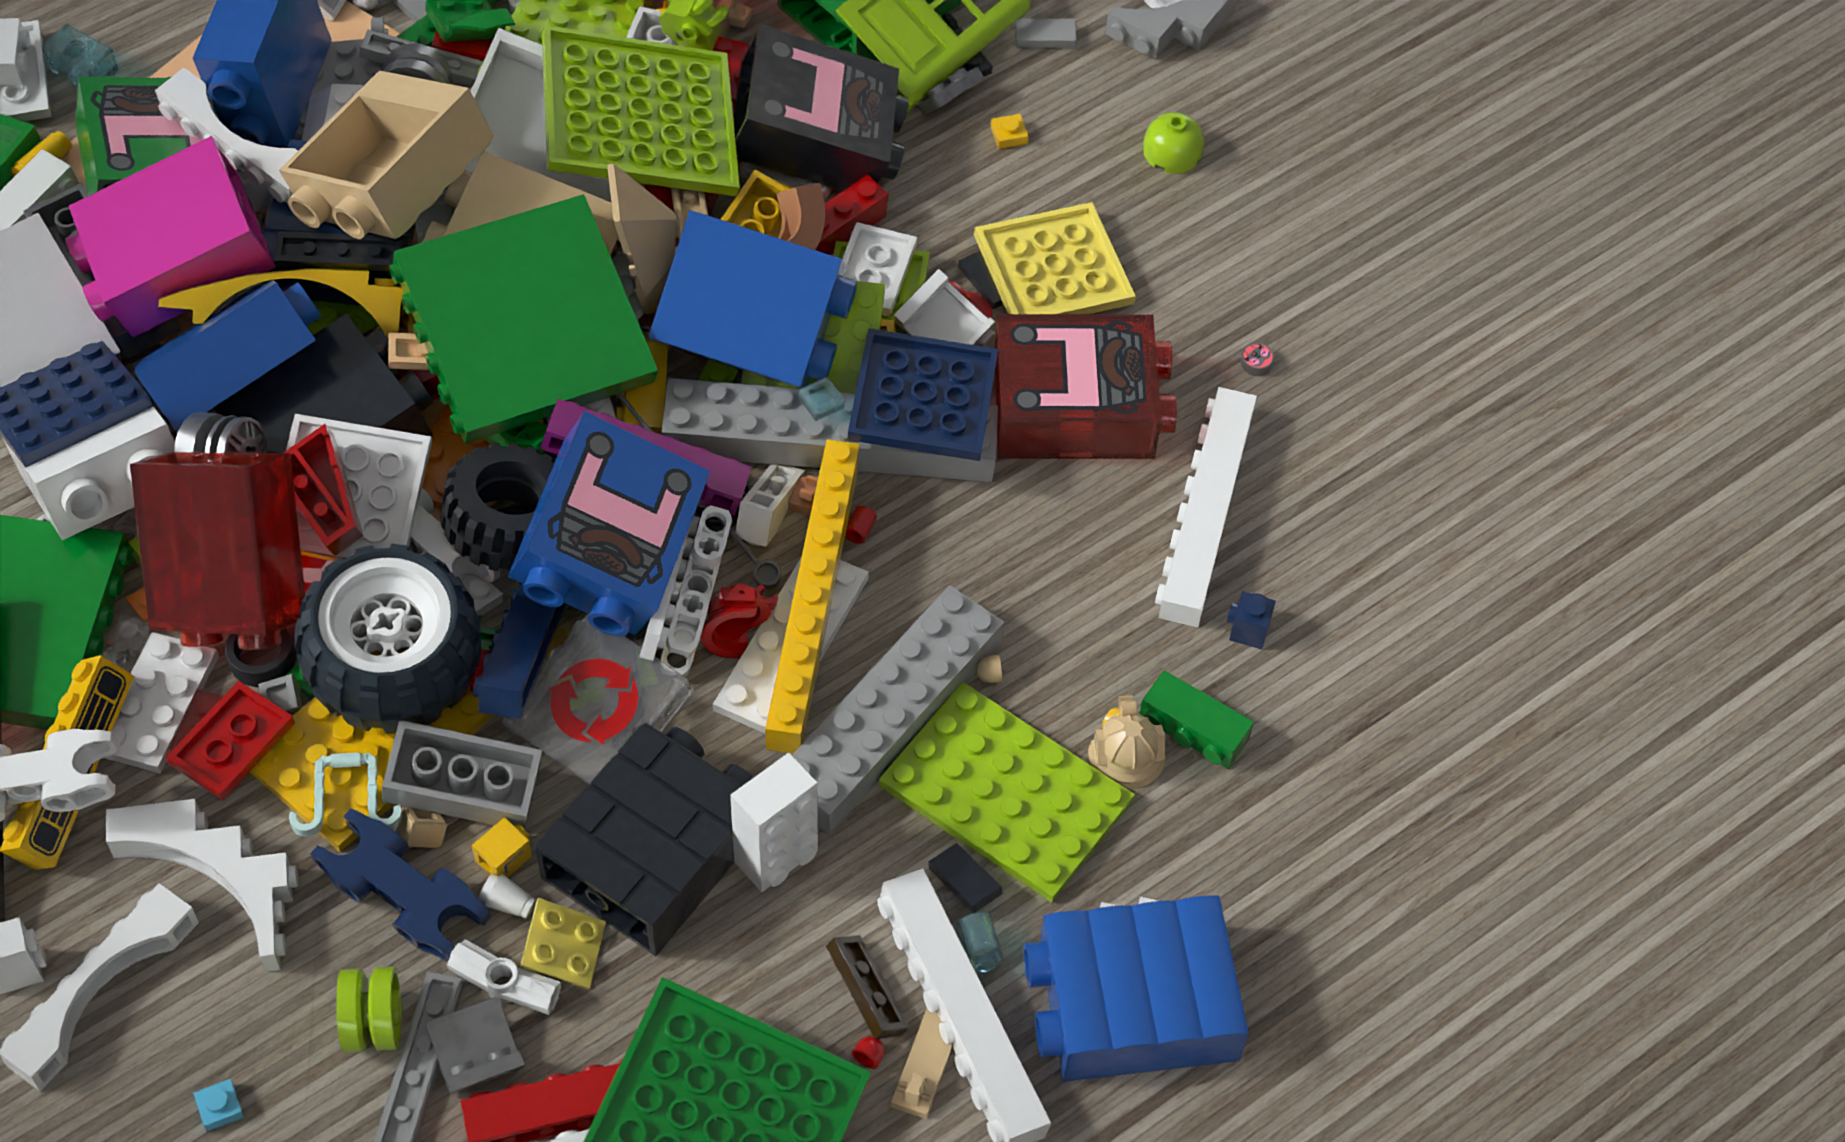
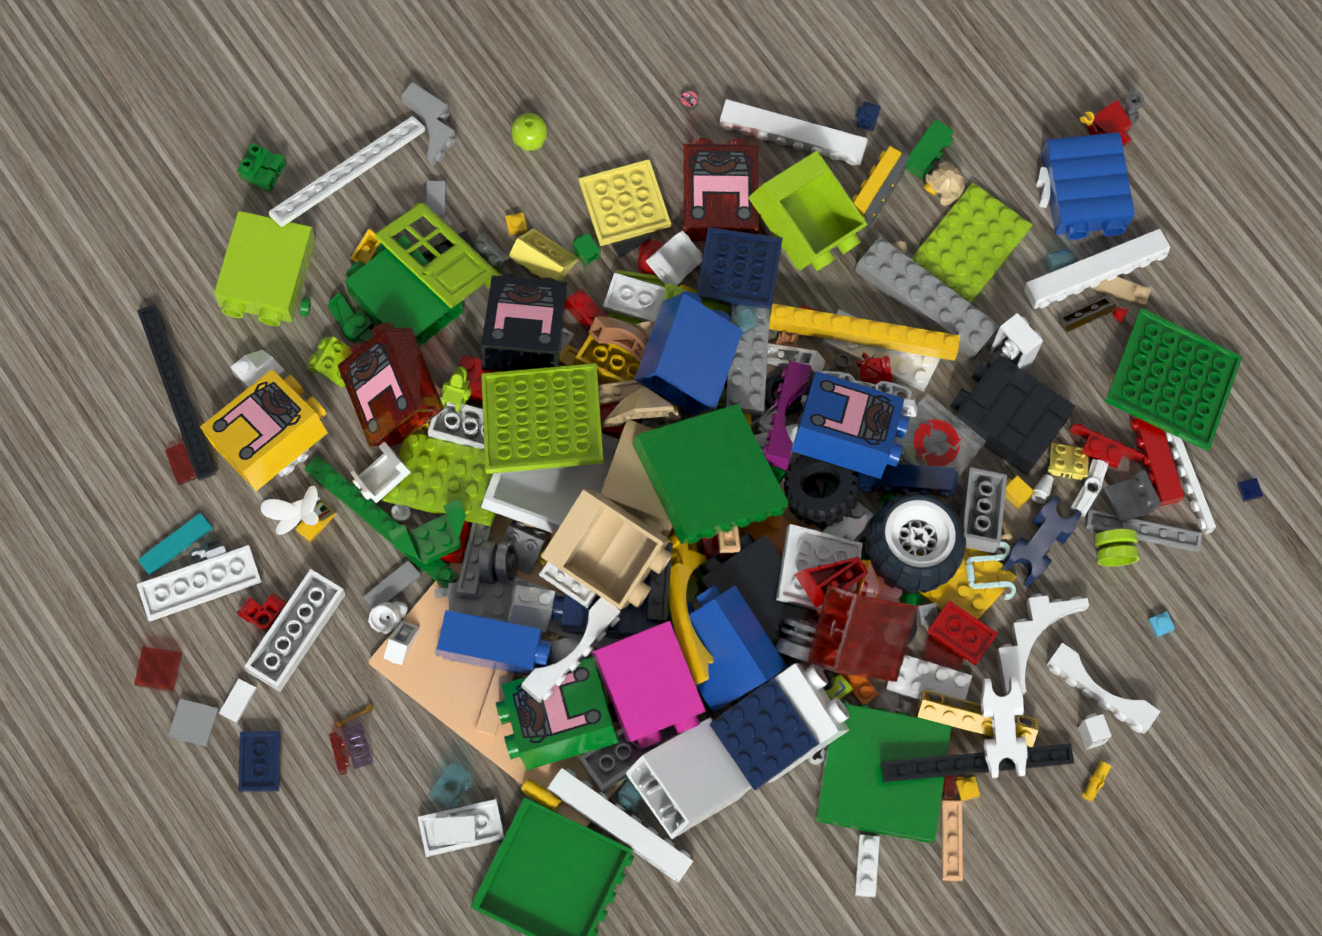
camera: 90 degrees left, 15 degrees up
(580, 1003) = (1104, 449): none -> red bracket
(951, 160) = (542, 256): none -> light yellow slope
(964, 213) = (586, 249): none -> green brick
(965, 877) = (1024, 265): black tile -> none
(1033, 494) = (809, 213): none -> lime brick
(1103, 625) = (880, 184): none -> piece
(1290, 1050) = (1114, 118): none -> red torso

